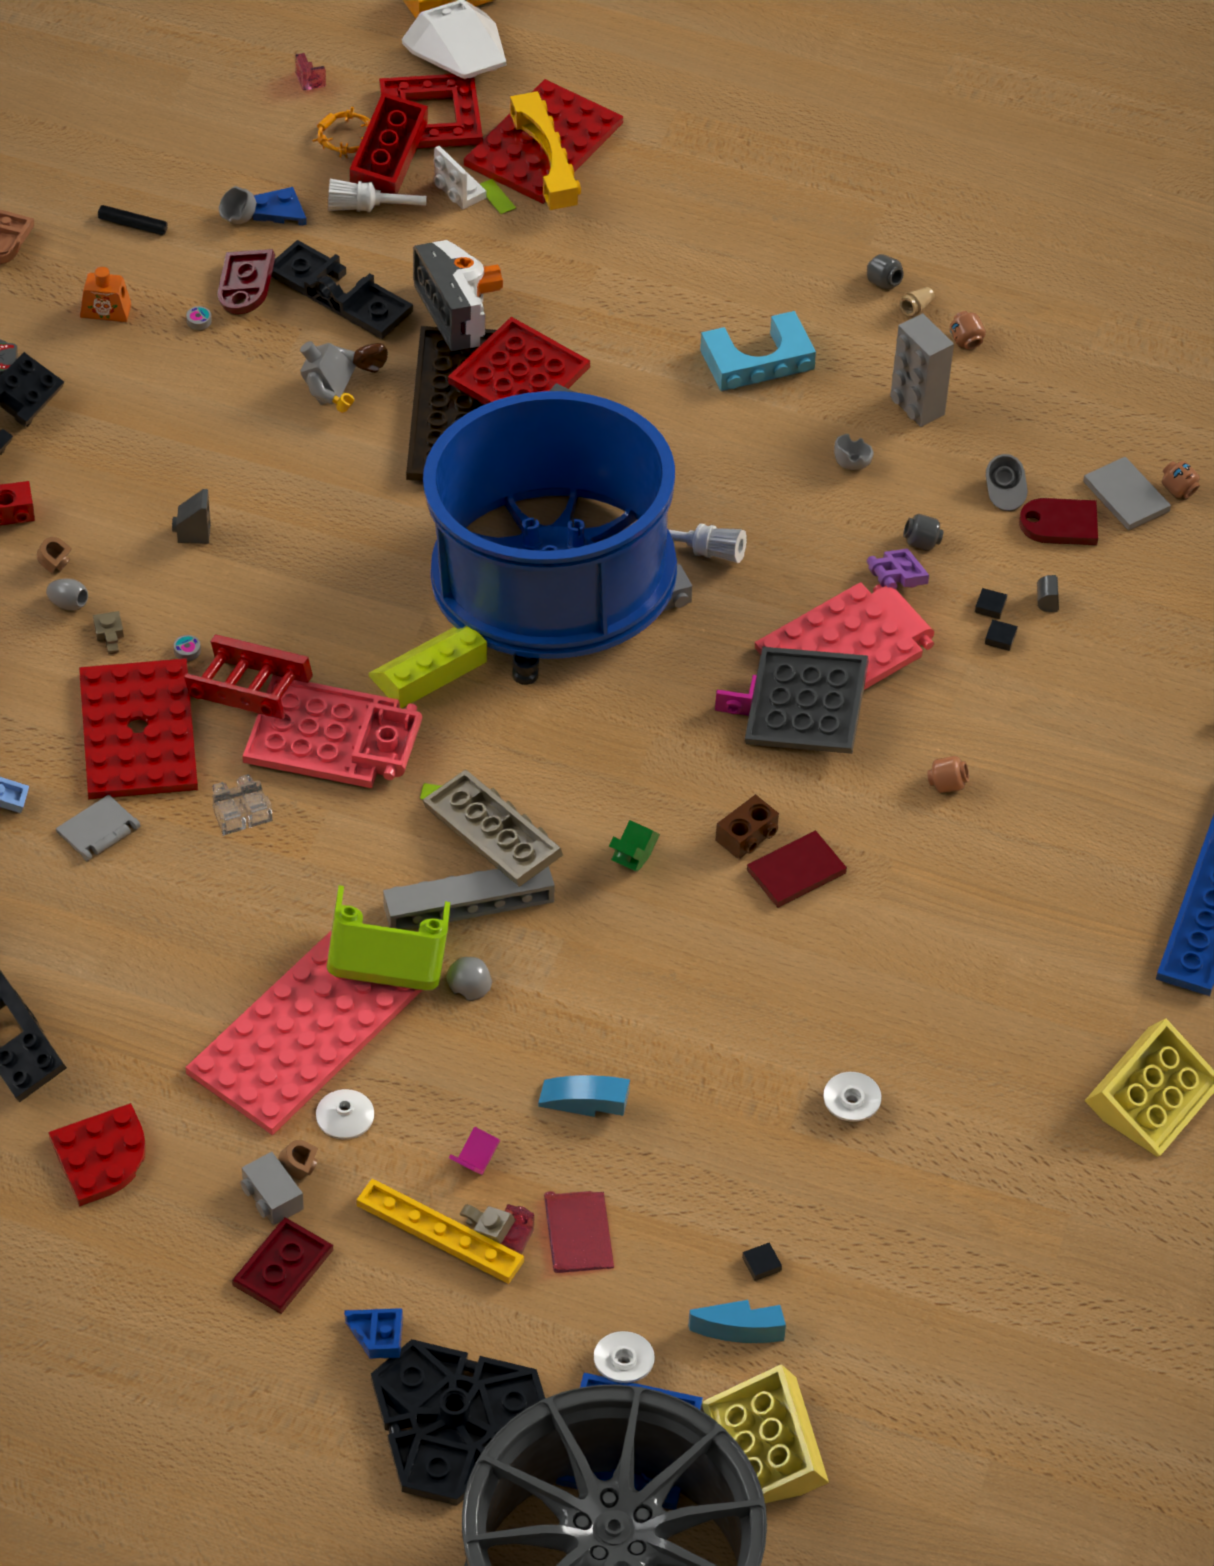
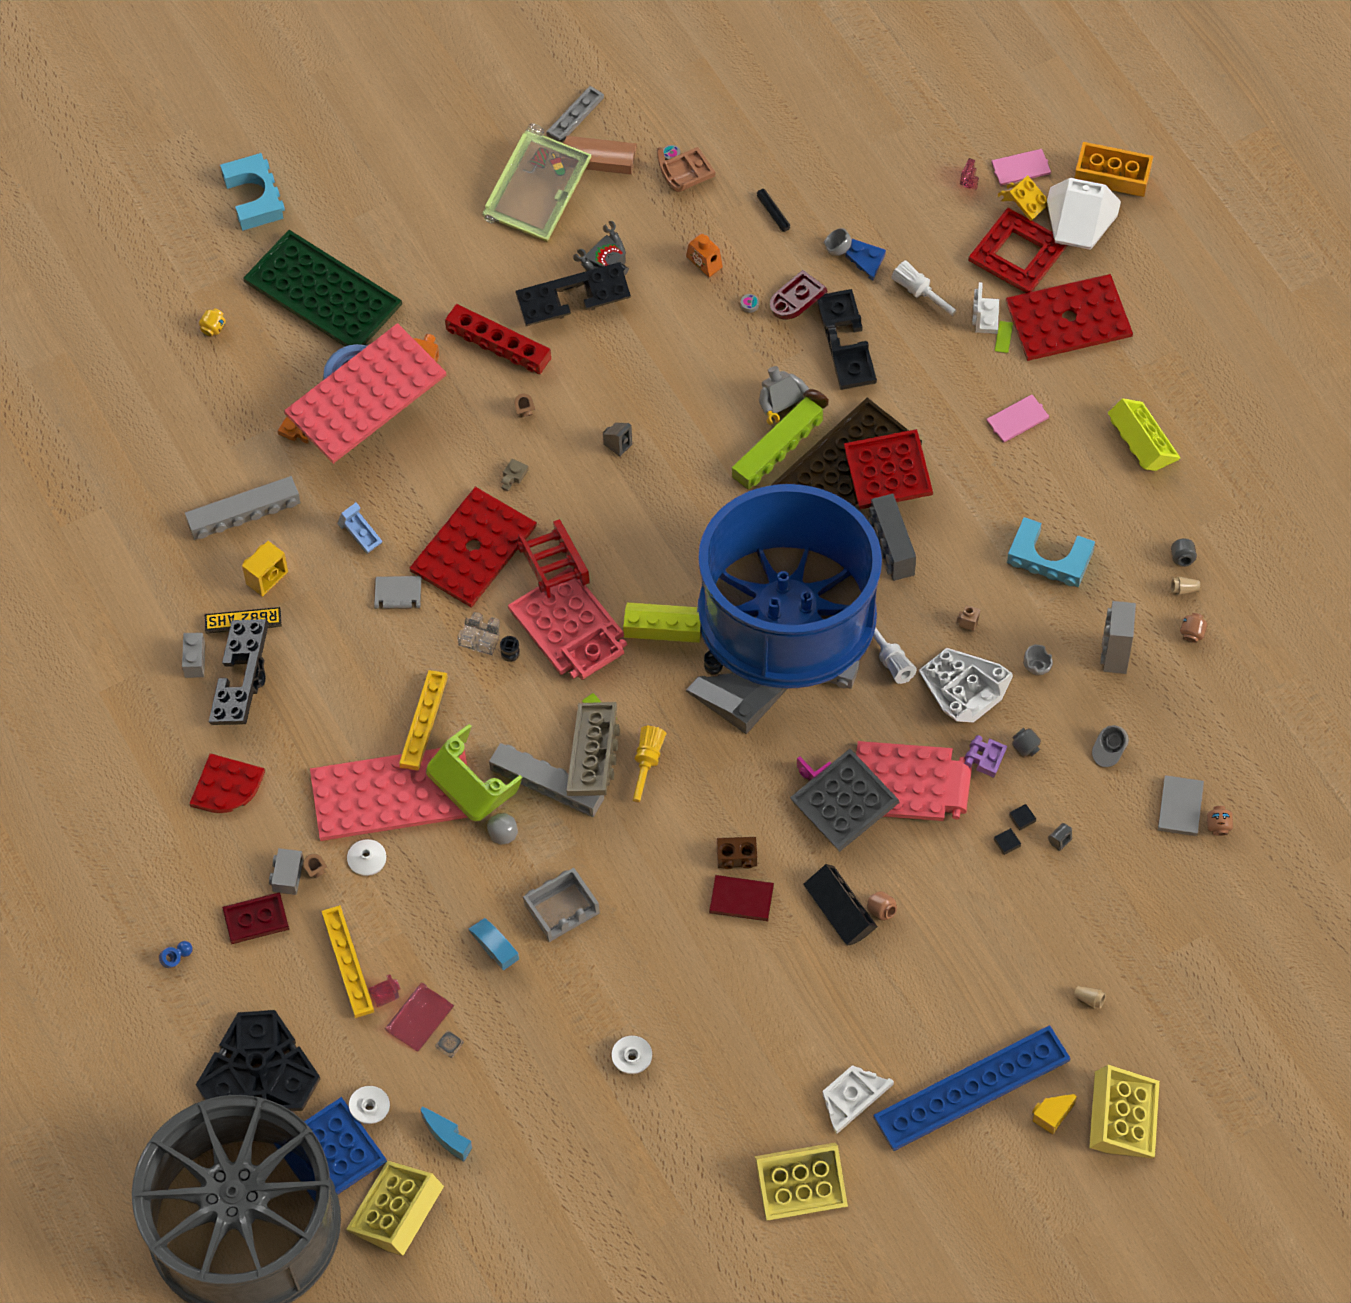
camera: 45 degrees right, 10 degrees up
(67, 594) = (509, 435): light grey animal -> none
(187, 647) = (544, 515): light grey tile -> none
(227, 1374) = (183, 949): none -> blue plate
(270, 928) = (423, 720): none -> yellow plate
(289, 796) = (507, 652): none -> black wheel
(328, 120) = (952, 216): light orange piece -> none
(350, 40) = (1019, 166): none -> bright pink piece
(371, 424) = (777, 443): none -> lime brick
(377, 1331) = (263, 992): blue wing -> none
(383, 53) = (1026, 196): none -> yellow plate
(389, 143) = (961, 260): red brick -> none
(453, 290) = (904, 386): piece -> none
(477, 1151) = (405, 933): dark pink bracket -> none
(491, 1223) = (375, 977): dark tan plate -> none
(531, 116) = (1037, 357): yellow arch -> none
(552, 797) = (647, 755): none -> yellow piece
(583, 687) = (735, 698): none -> dark grey slope
(590, 258) = (1017, 418): none -> bright pink piece
(616, 1003) = (561, 904): none -> window
(634, 846) = (663, 817): green brick -> none
(642, 1232) = (449, 1044): none -> tile
(731, 196) = (1143, 434): none -> neon yellow slope
(743, 458) = (968, 618): none -> medium nougat plate
(762, 1261) = (494, 1109): black tile -> none
(805, 517) = (965, 684): none -> white wedge
(906, 802) = (840, 905): none -> black brick
(1060, 521) = (1122, 795): dark red tile -> none
(1113, 972) = (852, 1095): none -> white wing

